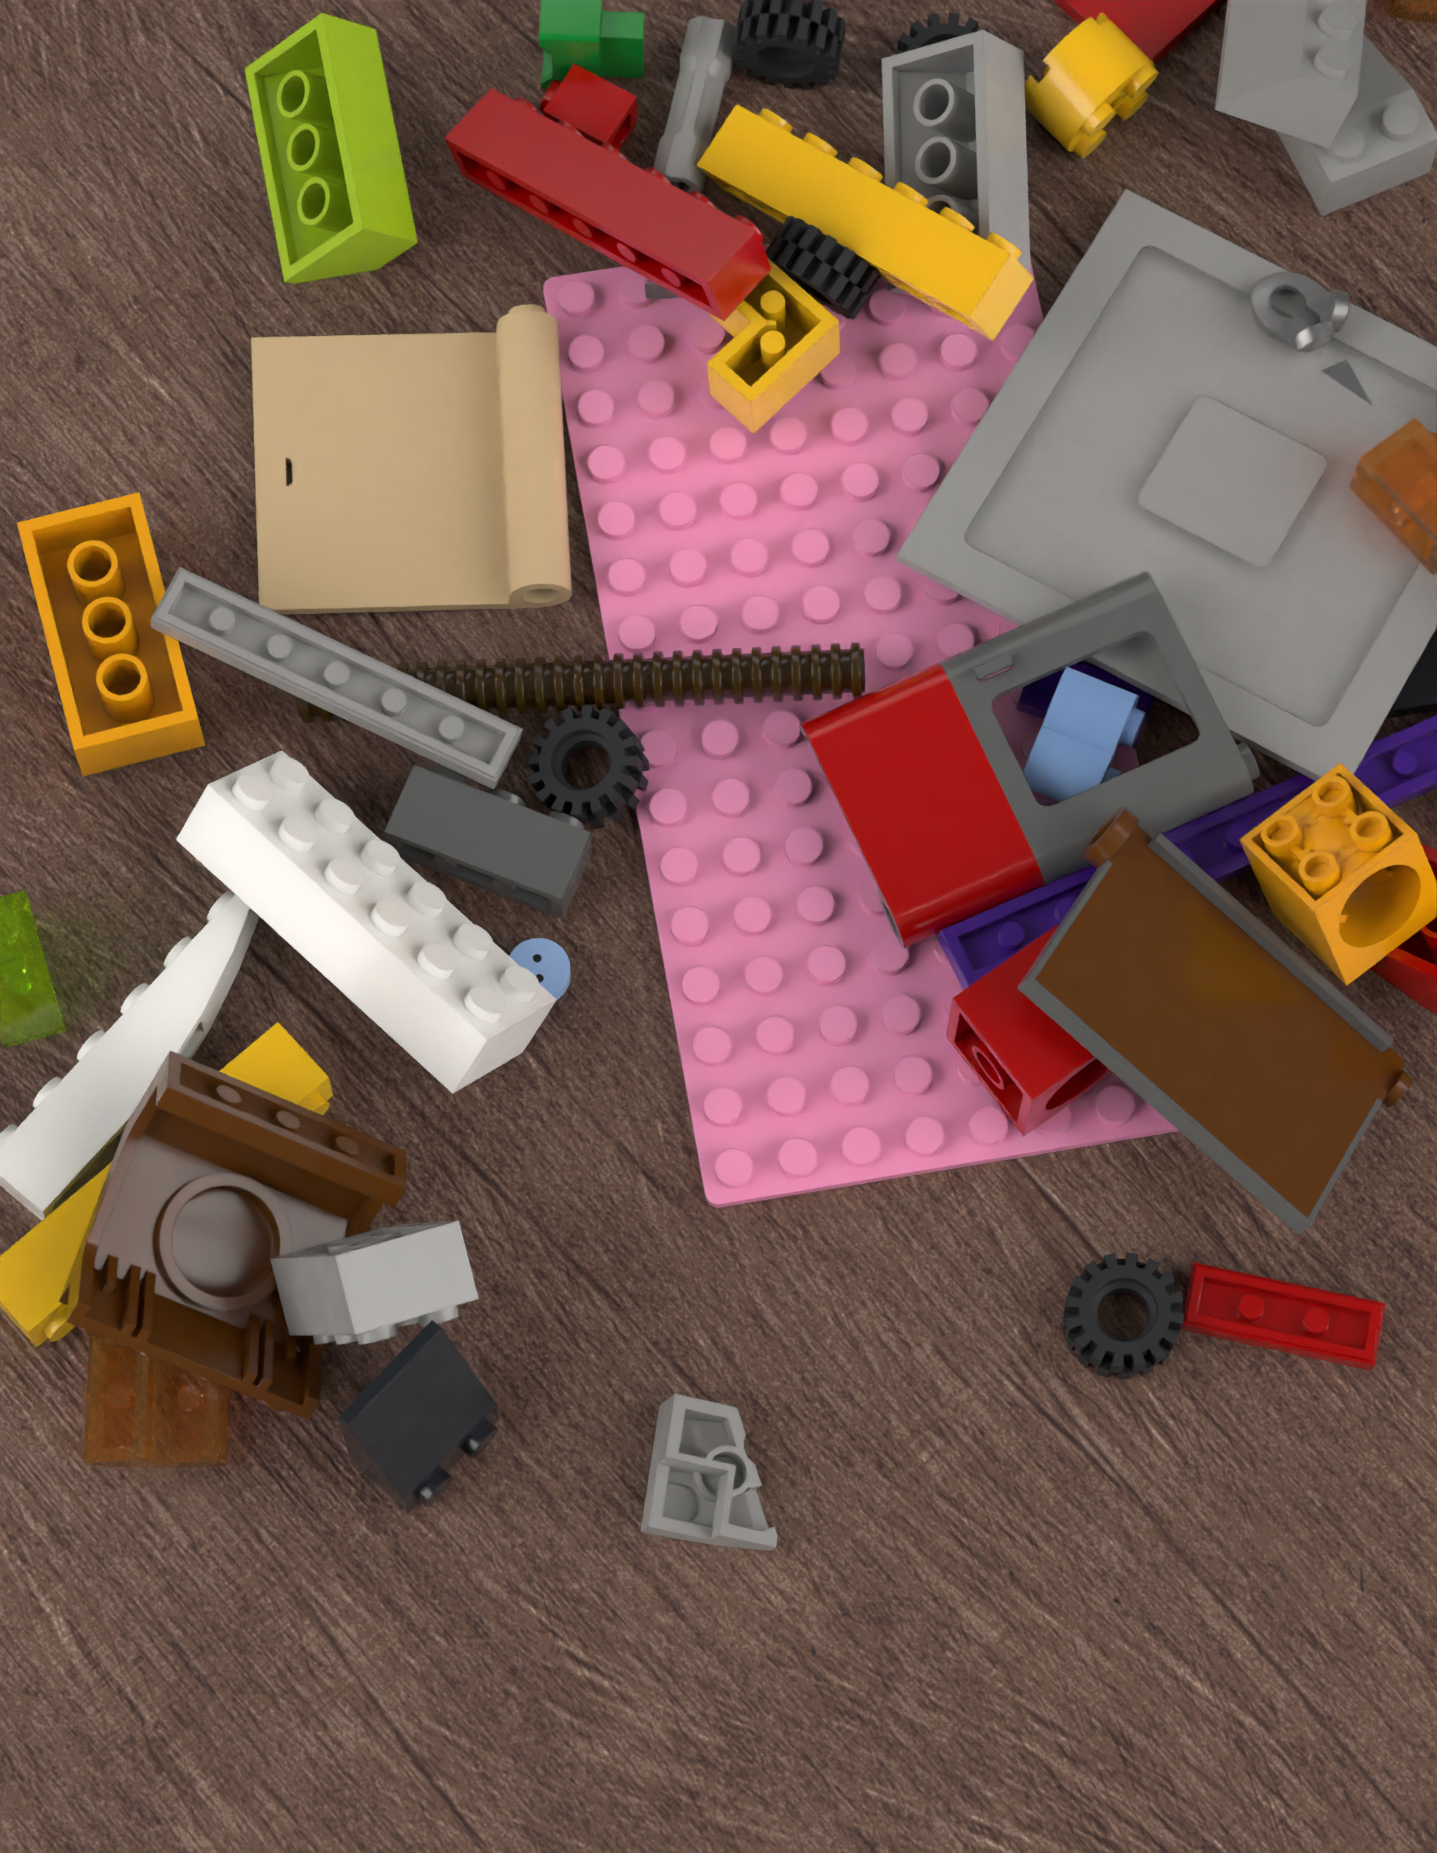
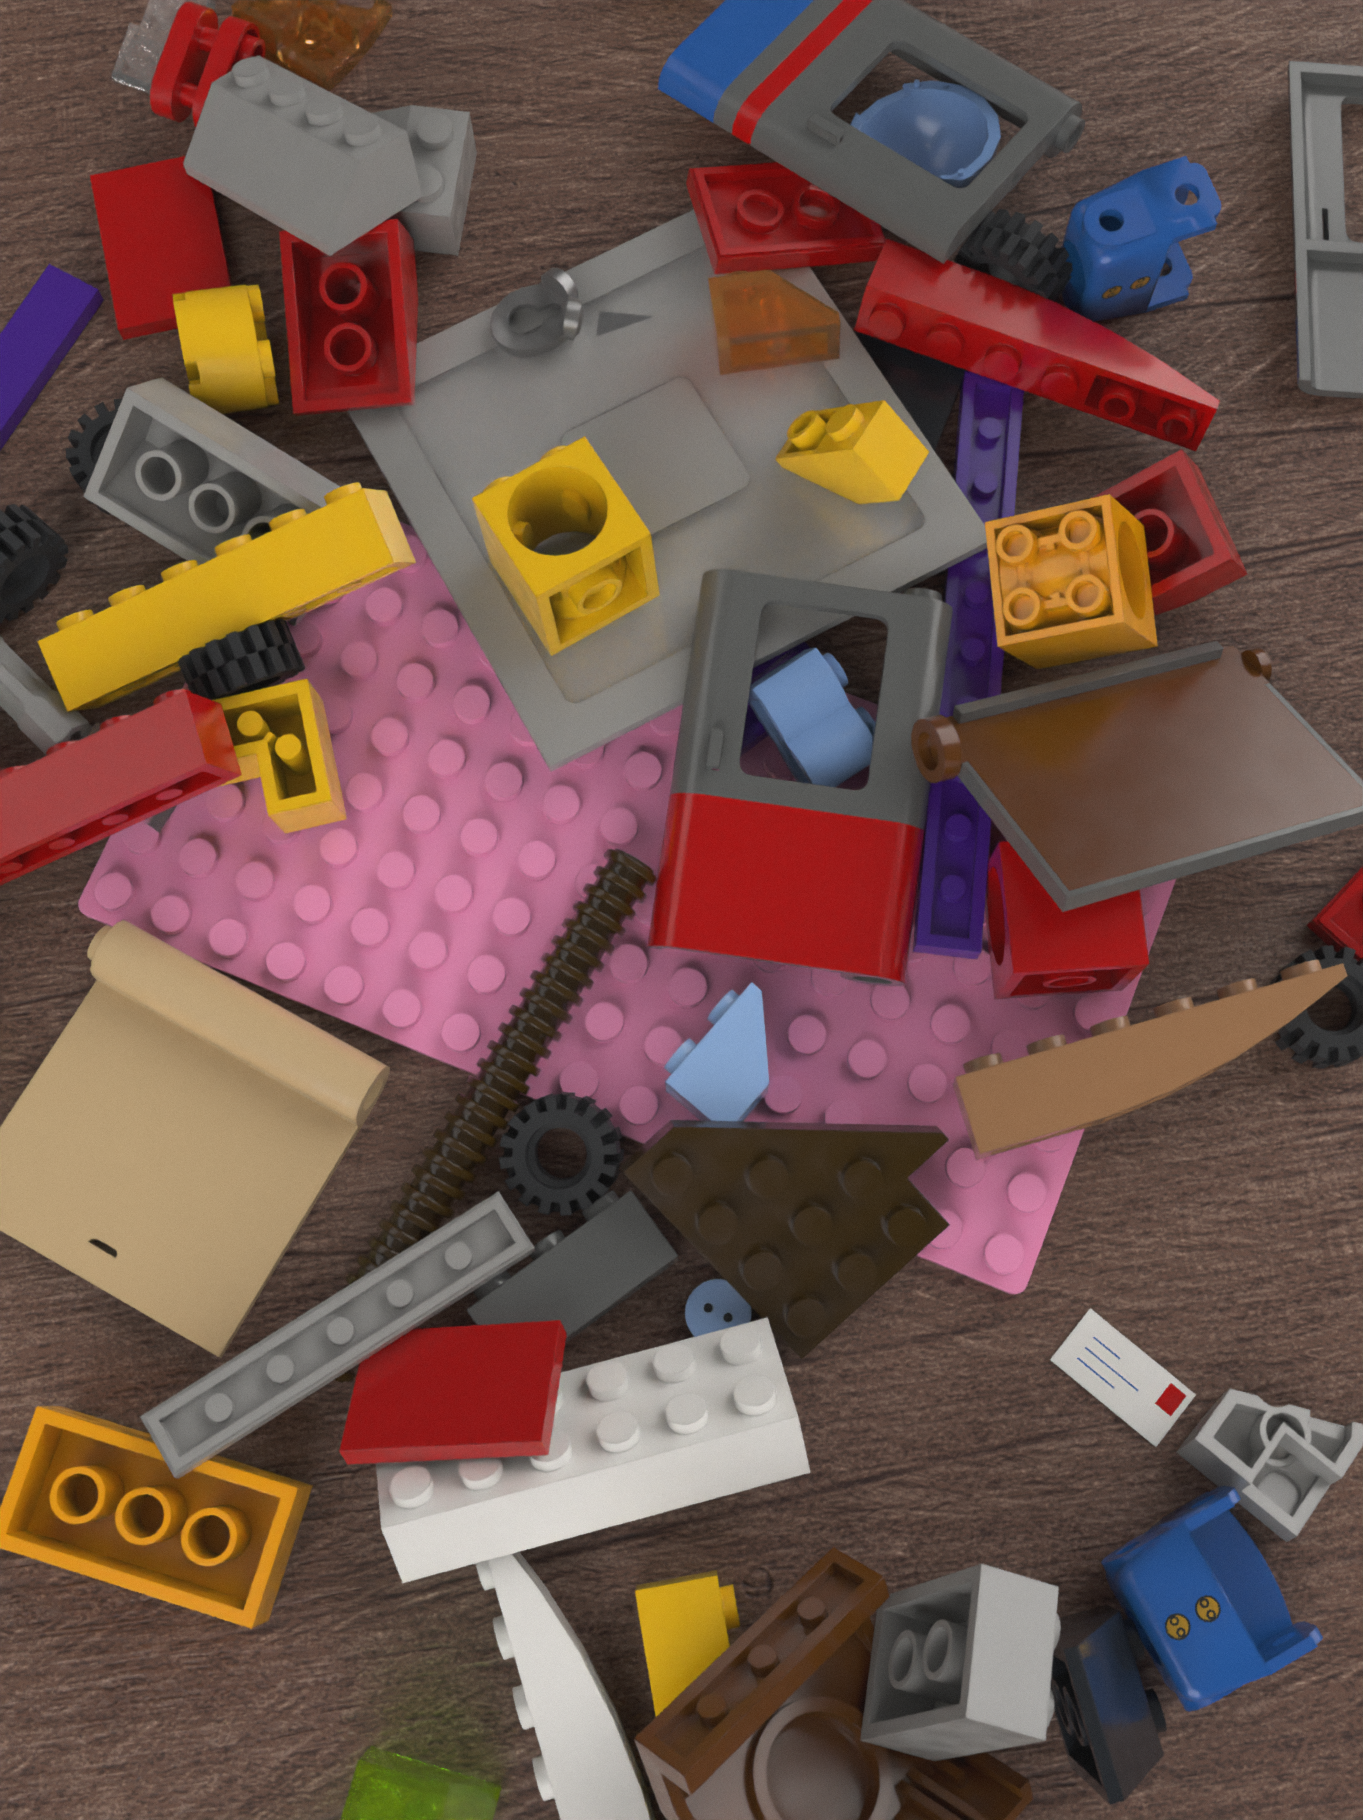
camera: 55 degrees left, 5 degrees up
(344, 787) = (457, 1394): none -> red tile
(552, 1478) = (1206, 1601): none -> blue piece
(654, 969) = (794, 1211): none -> dark brown wing
(694, 1328) = (1123, 1377): none -> white sticker
(742, 848) = (729, 1067): none -> light blue slope
(955, 1164) = (1124, 1064): none -> medium nougat slope
(1075, 489) = (575, 591): none -> yellow brick
(1186, 169) = (351, 321): none -> red slope
(1338, 626) = (854, 451): none -> yellow slope

